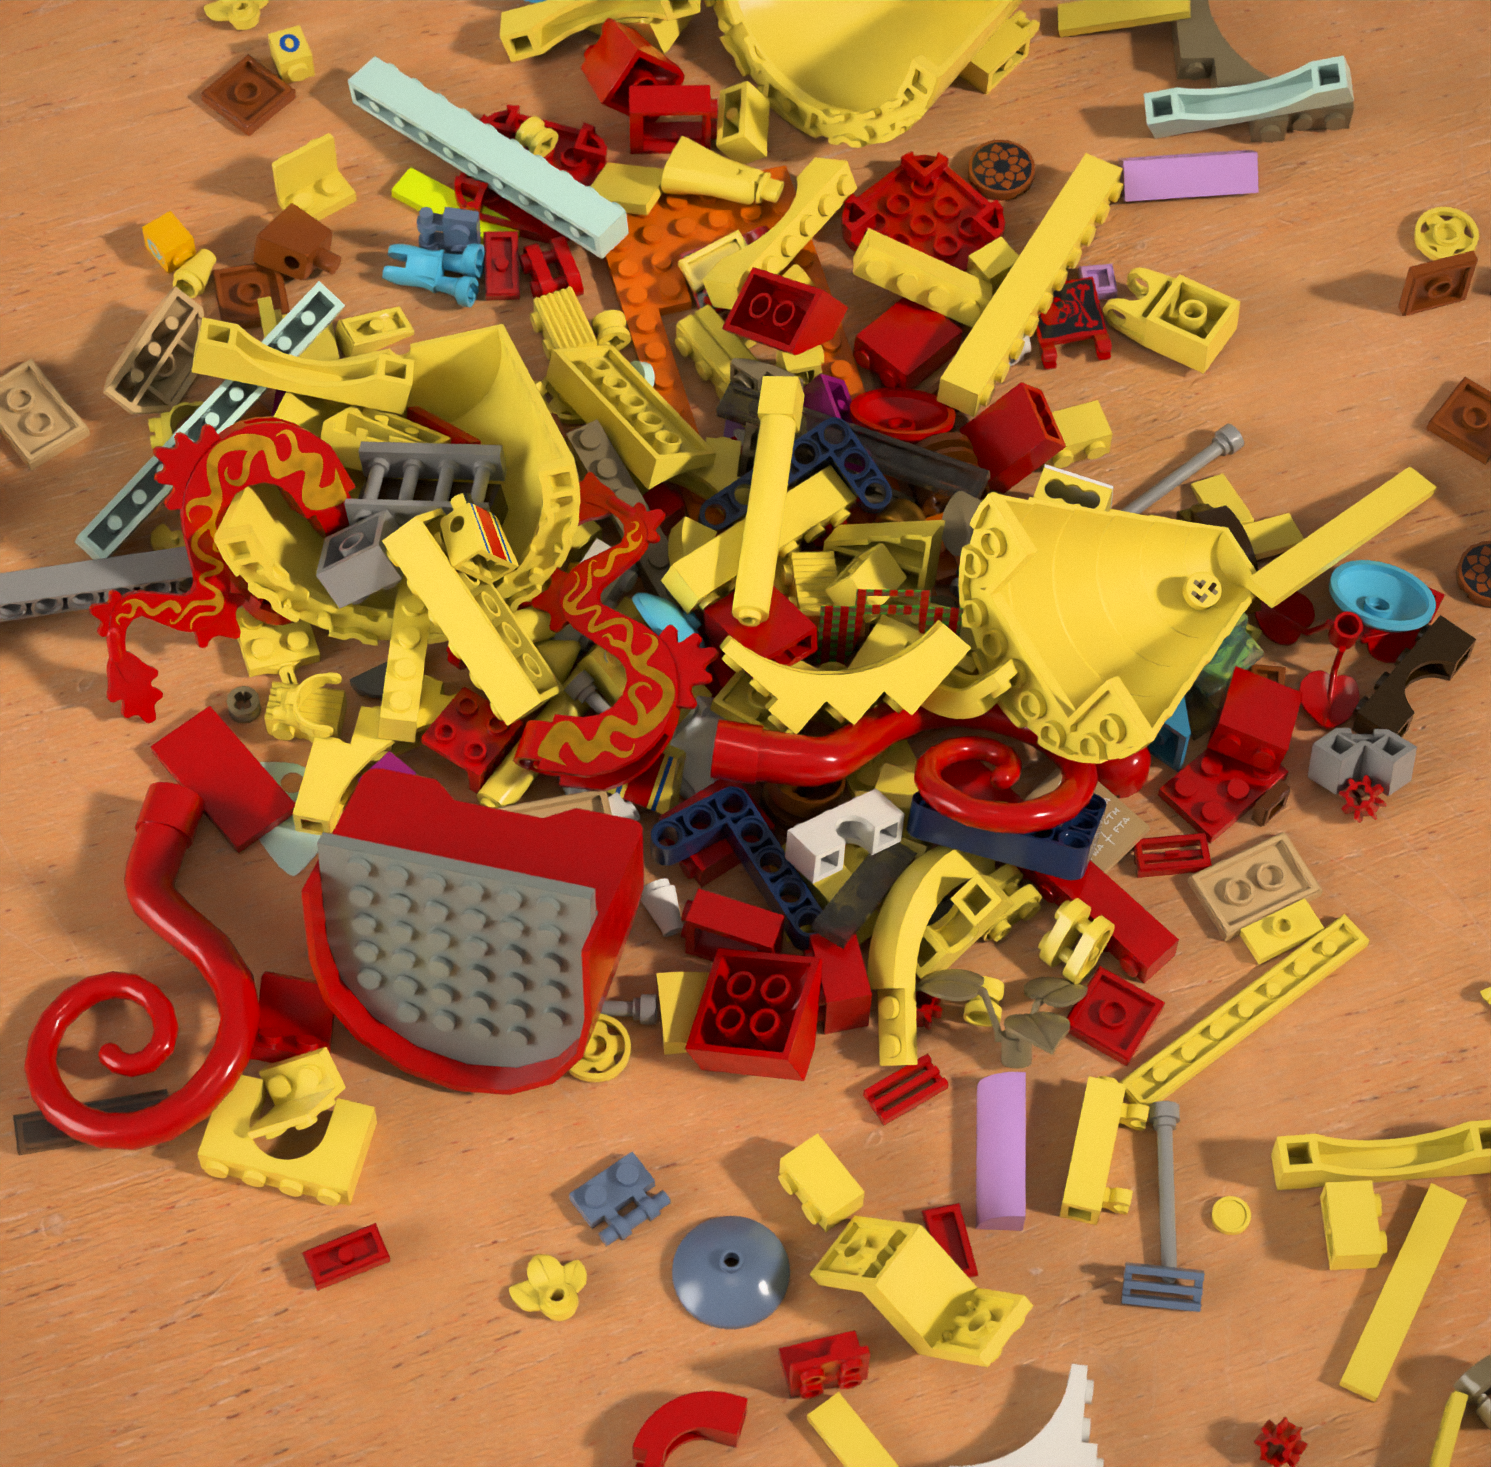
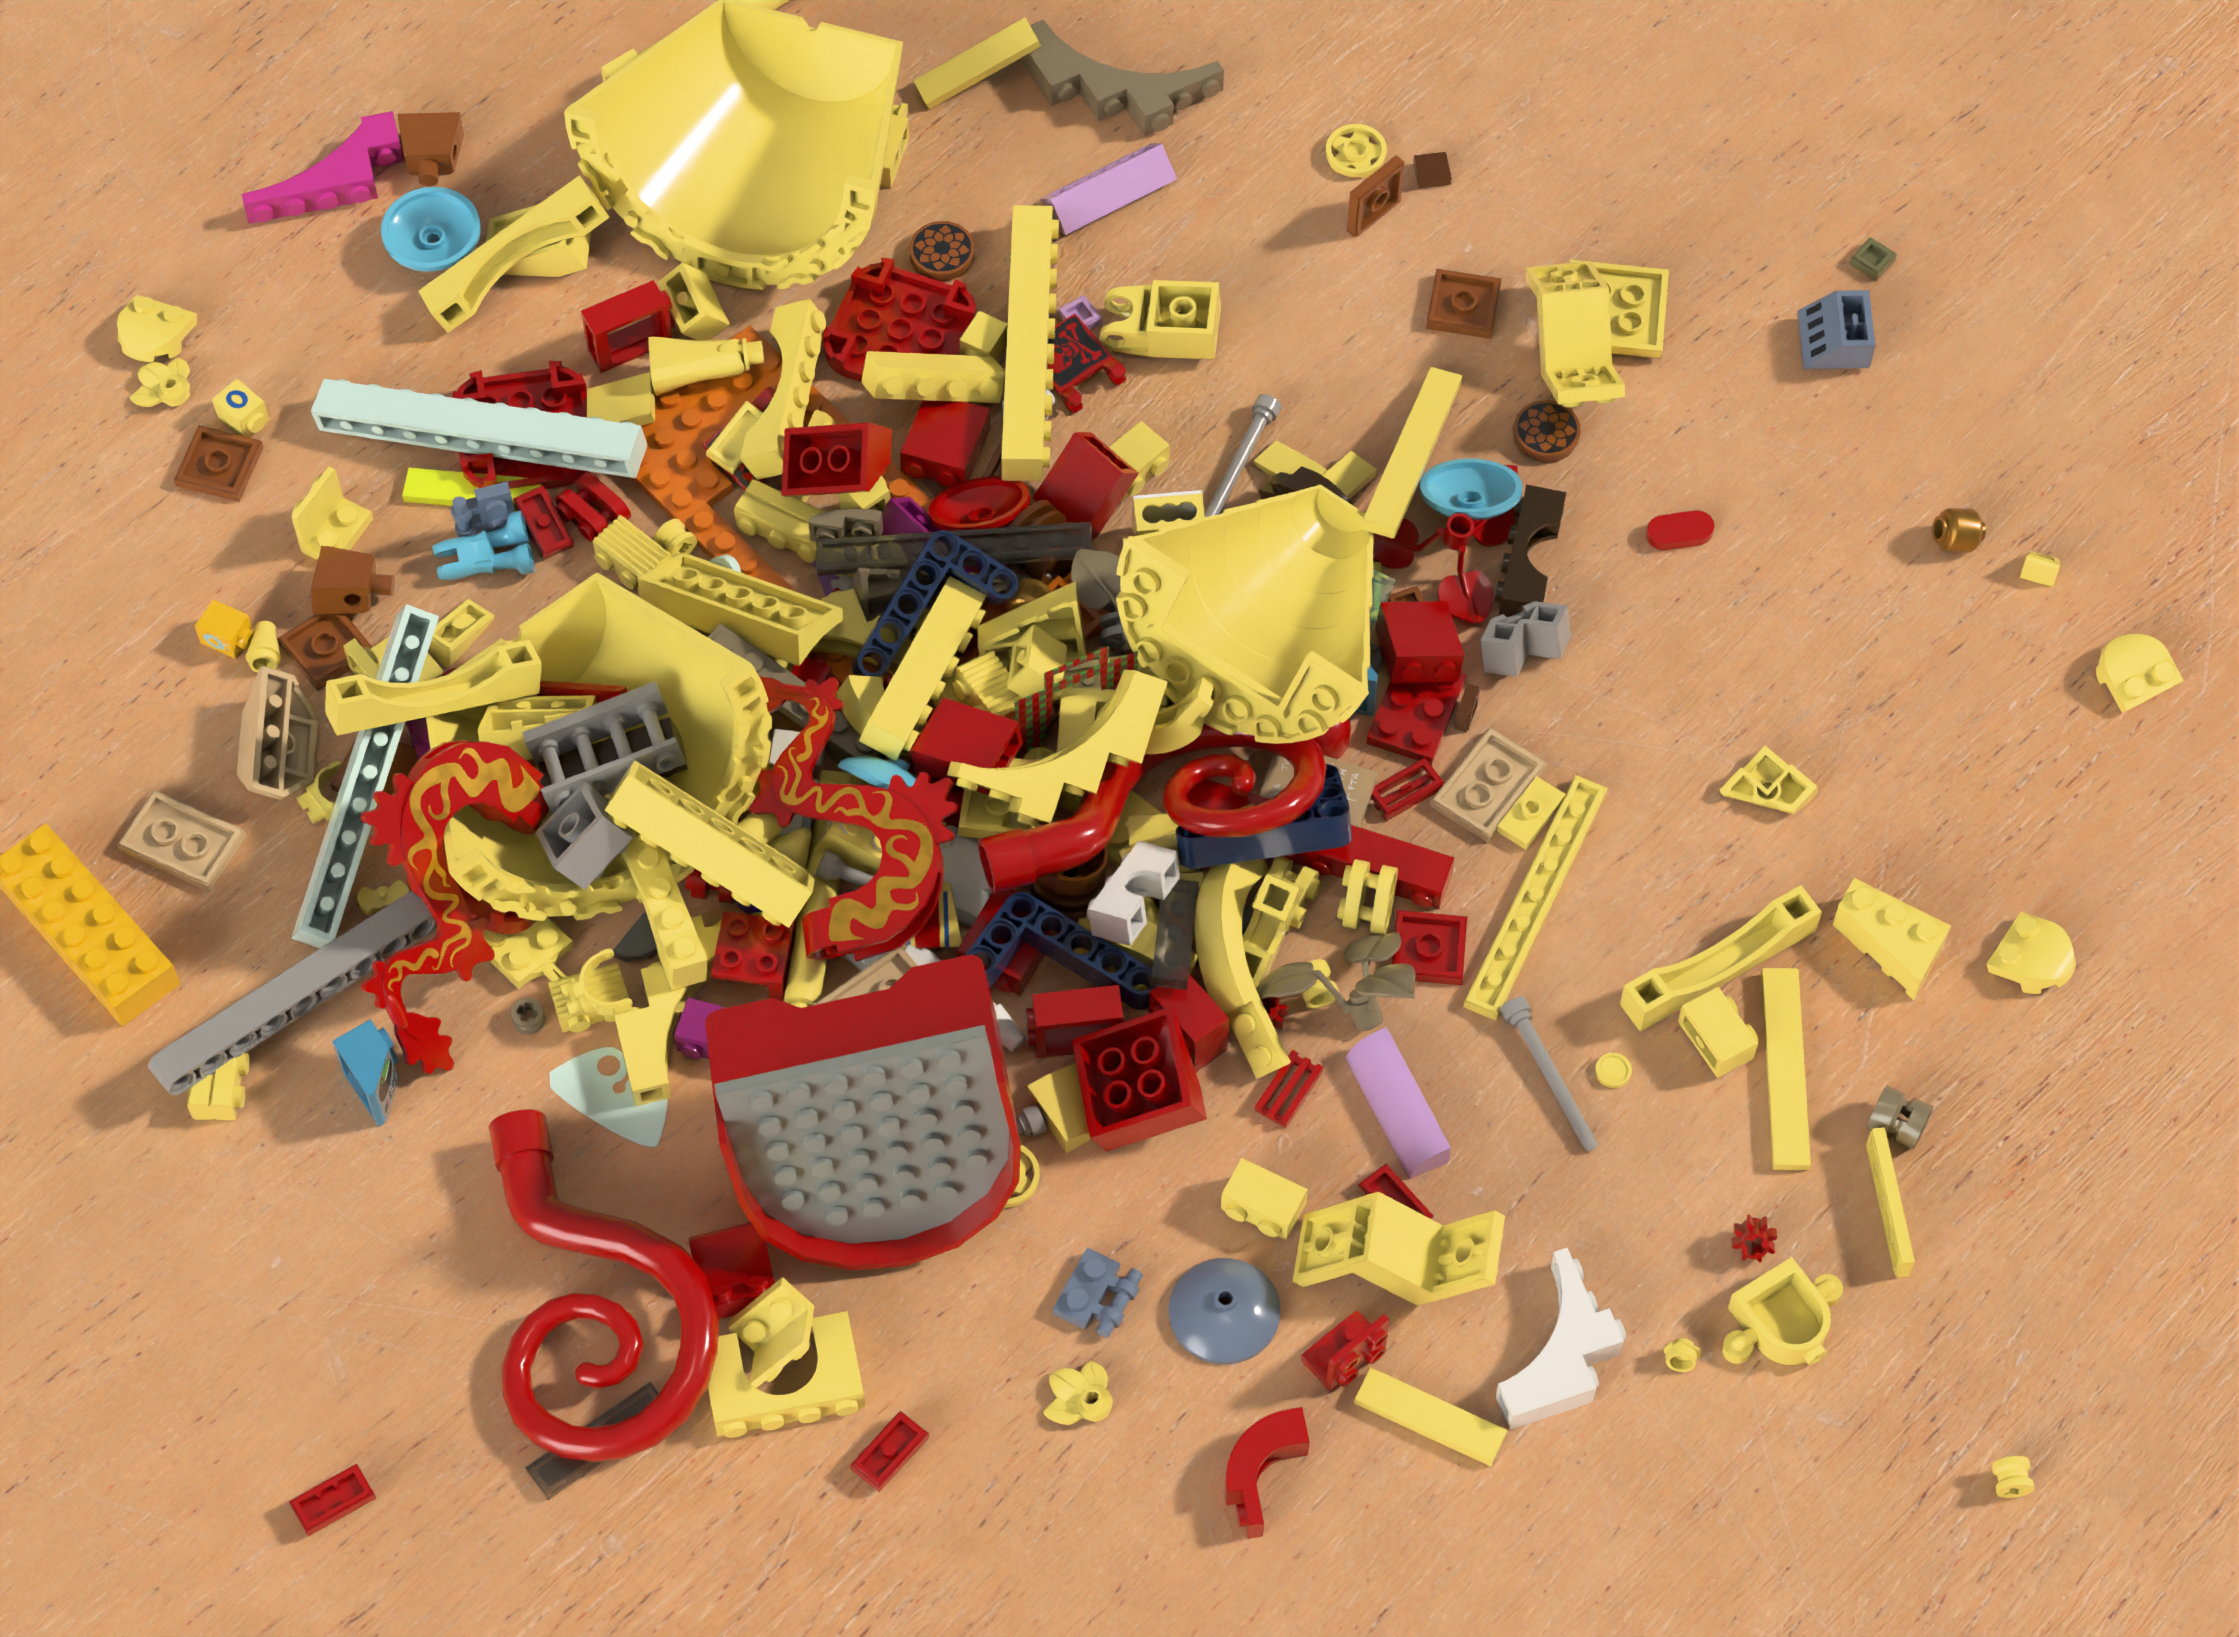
camera: 25 degrees left, 0 degrees up
(73, 688) = (369, 1067): none -> dark azure slope
(236, 788) = (570, 1094): red tile -> none
(476, 541) = (684, 774): light yellow torso -> none
(536, 136) = (513, 391): light yellow wheel -> none
(625, 60) = (558, 292): red hips -> none
(780, 419) = (918, 628): light yellow brick -> none
(1093, 1151) = (1474, 1066): light yellow brick -> none
(1159, 1301) = (1619, 1146): sand blue tile -> none
(1202, 590) = (1325, 548): light yellow tile -> none
(1306, 88) = (1173, 74): light aqua arch -> none
(1358, 789) = (1533, 665): red gear -> none

